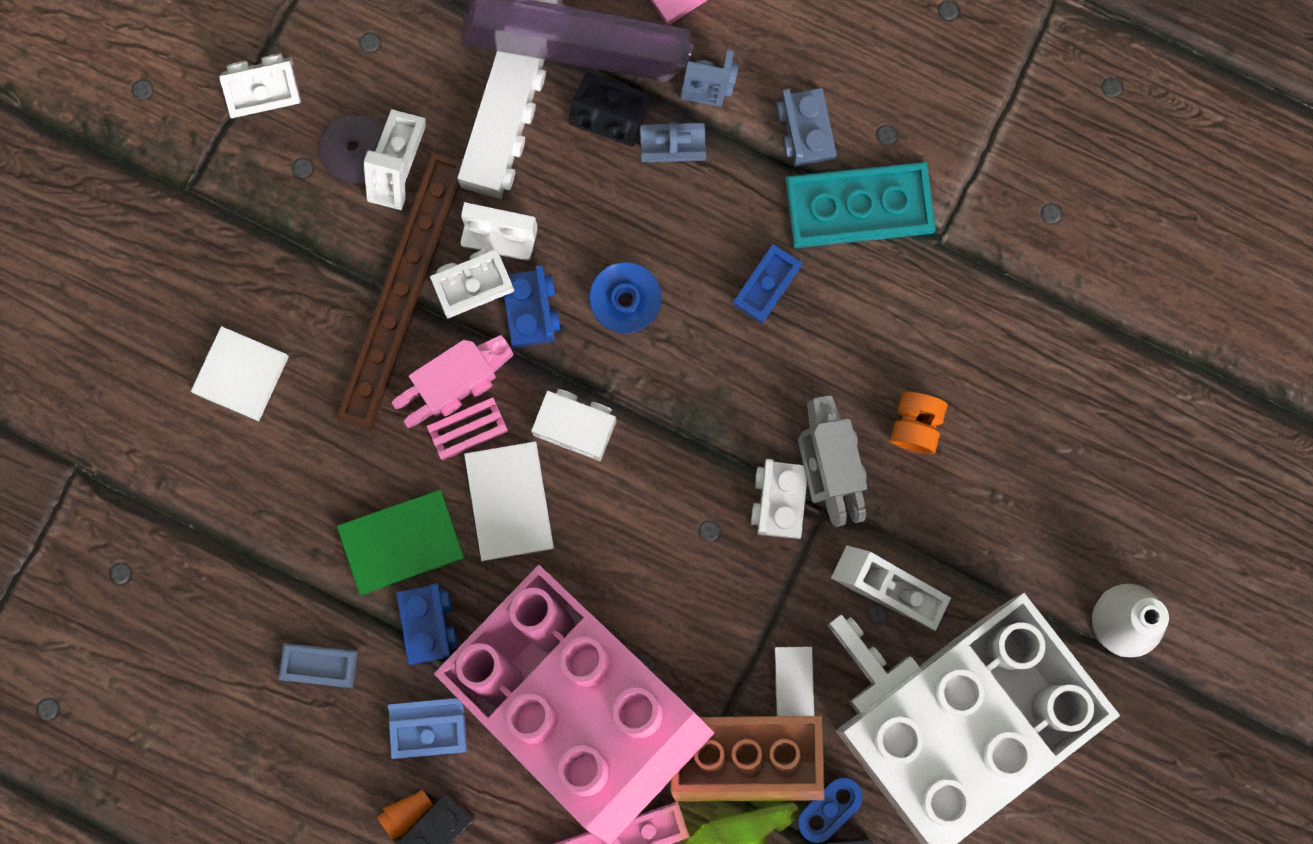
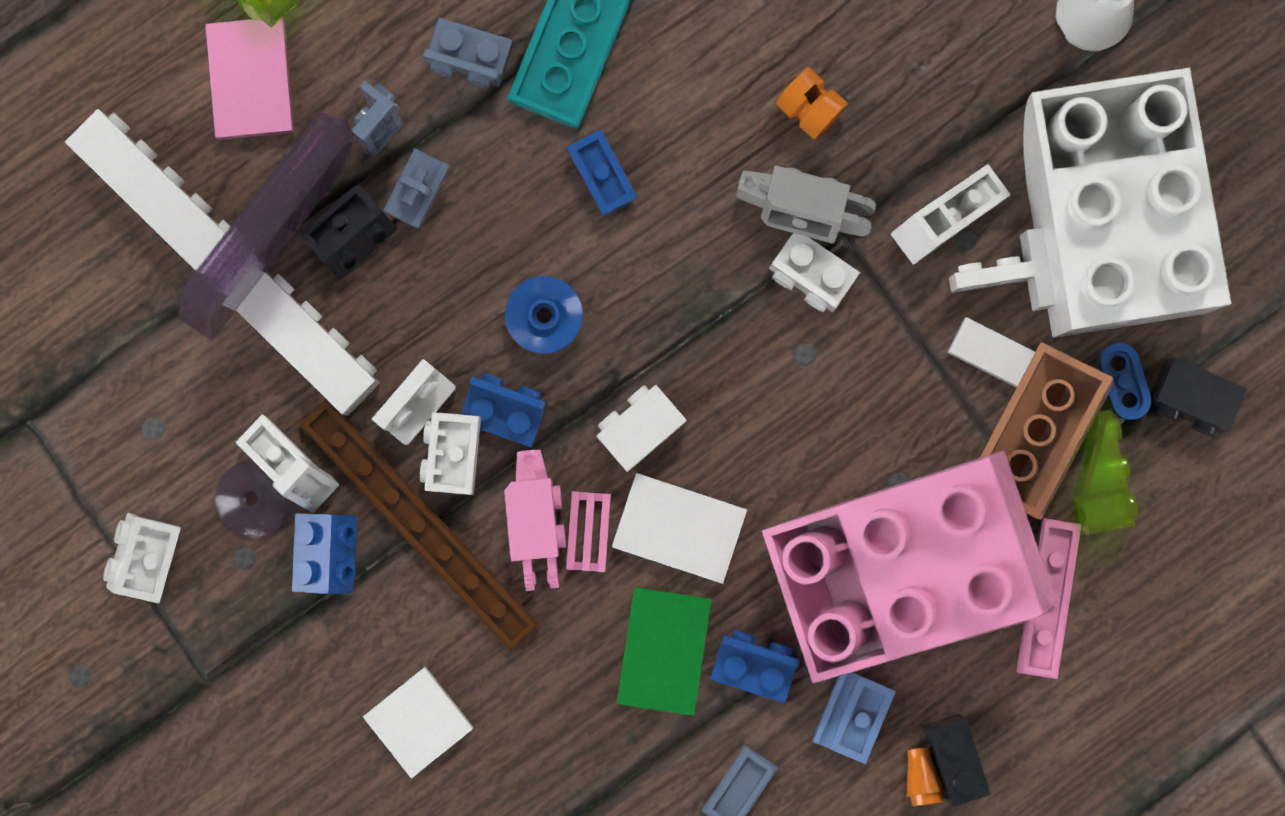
camera: 60 degrees left, 5 degrees up
(338, 227) = (324, 553): none -> blue bracket

